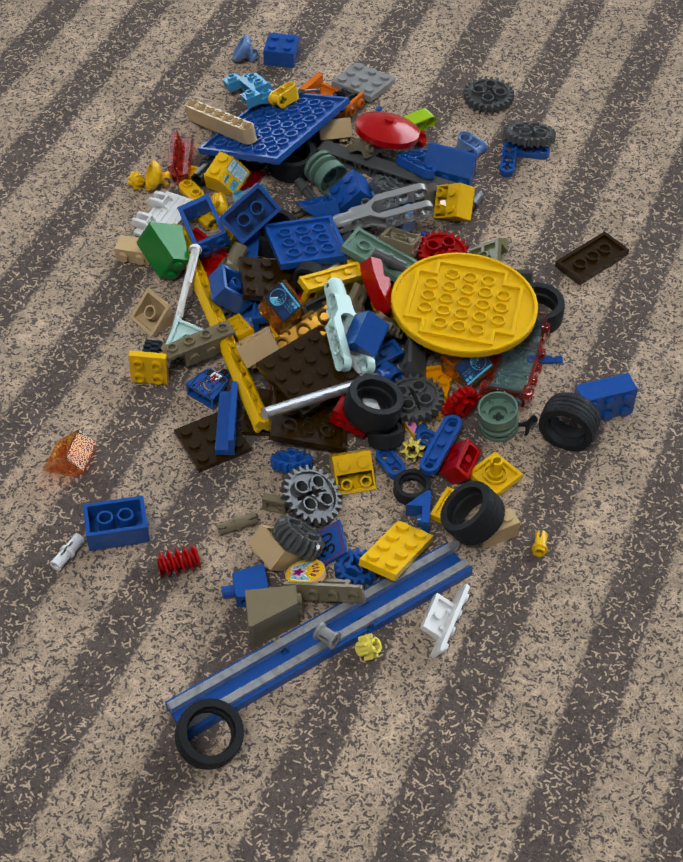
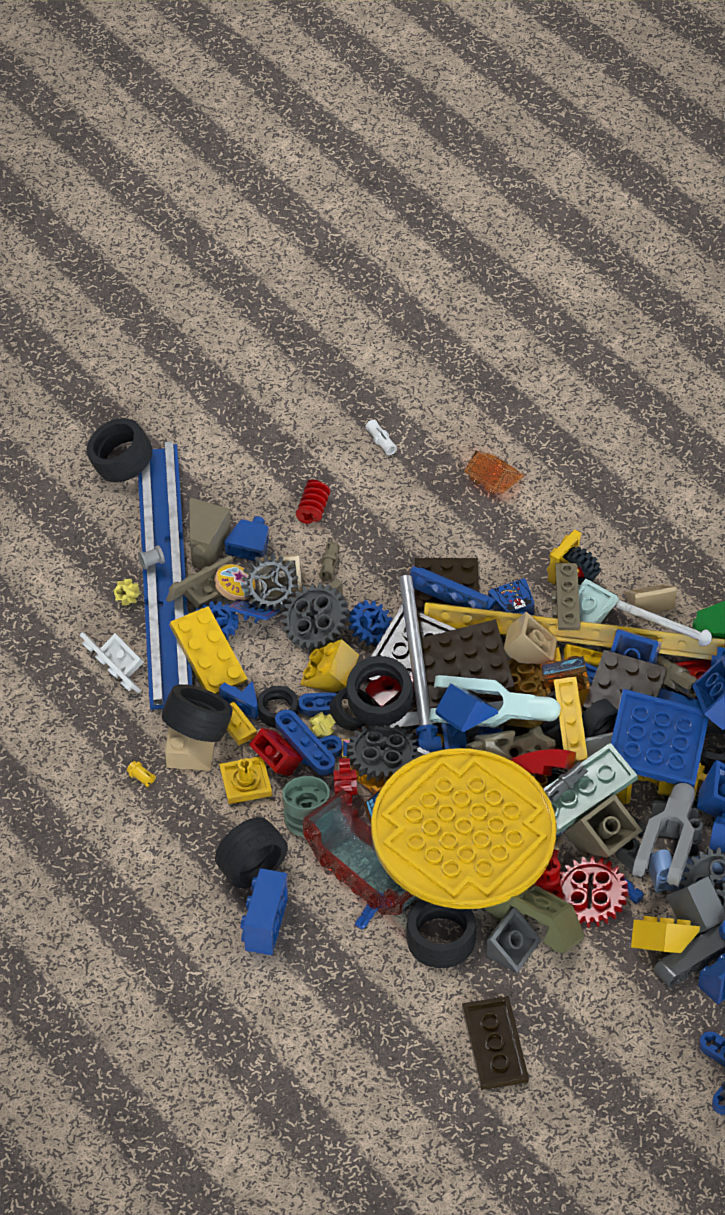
camera: 120 degrees right, 0 degrees up
(116, 523) = (384, 472): blue brick -> none
(528, 424) = (289, 839): black bar -> none

